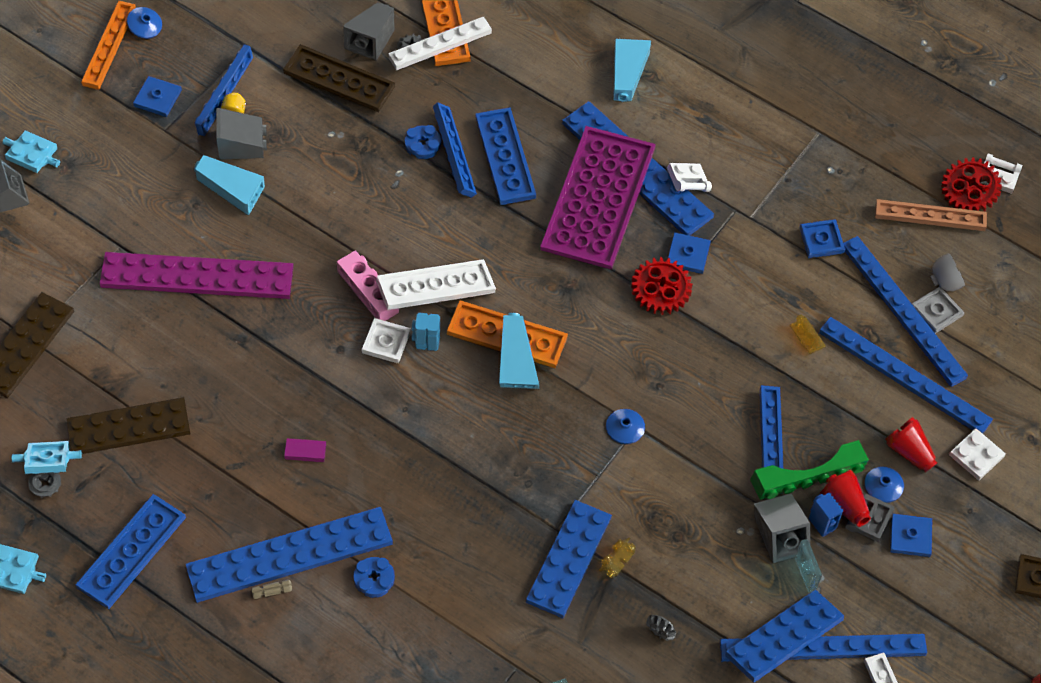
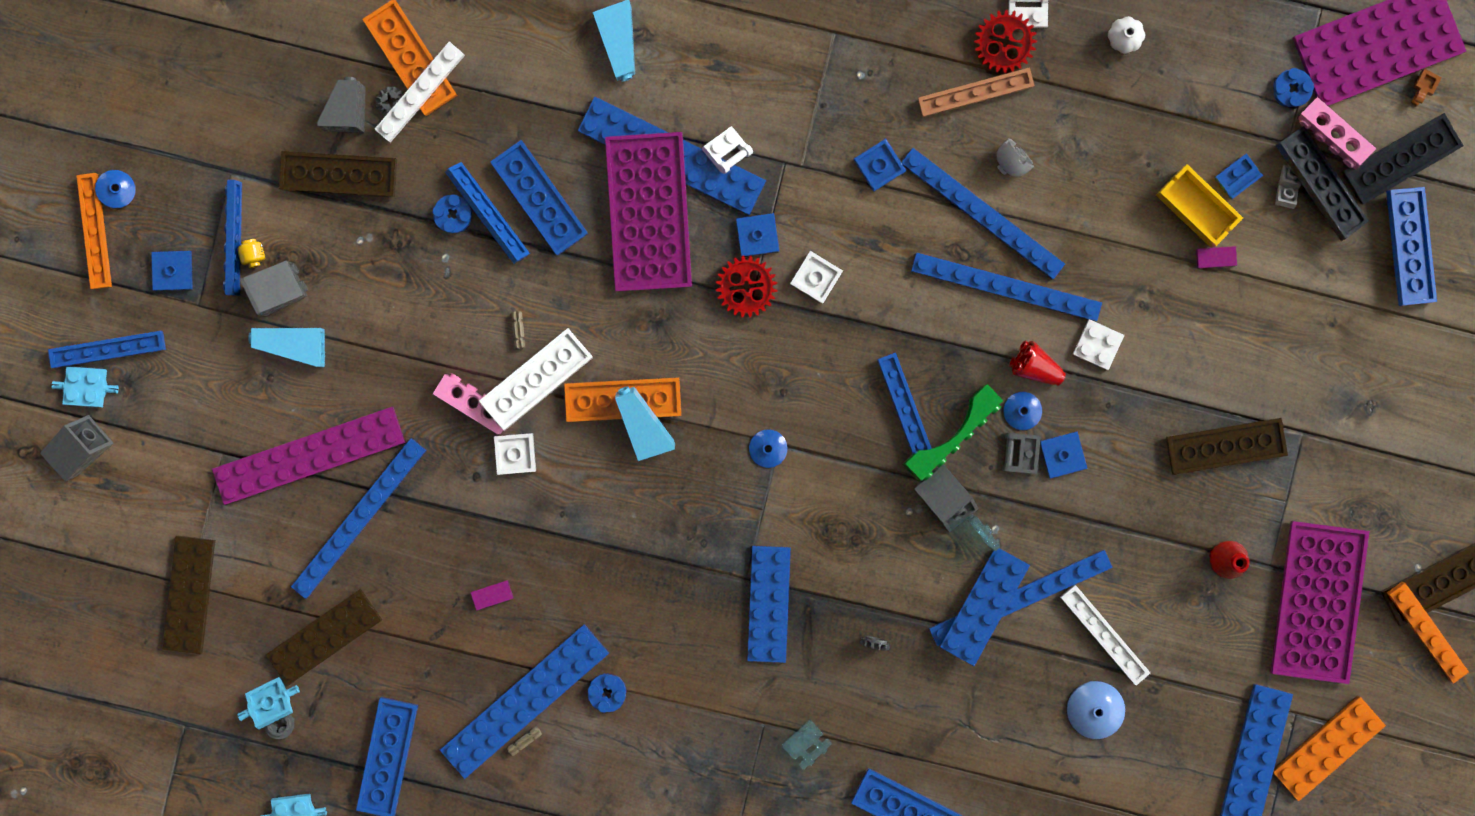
camera: 15 degrees left, 30 degrees up
(67, 130) = (106, 349): none -> blue plate
(213, 341) = (358, 518): none -> blue plate
(426, 331) = (549, 435): dark azure brick -> none
(437, 247) = (518, 330): none -> dark tan axle
(612, 562) = (808, 595): clear yellow hinge -> none
(729, 302) = (816, 277): none -> white plate
(807, 334) = (902, 281): clear yellow hinge -> none
(825, 514) = (981, 473): blue brick -> none
(849, 496) = (997, 450): red cone -> none
(938, 309) = (1014, 199): light grey tile -> none

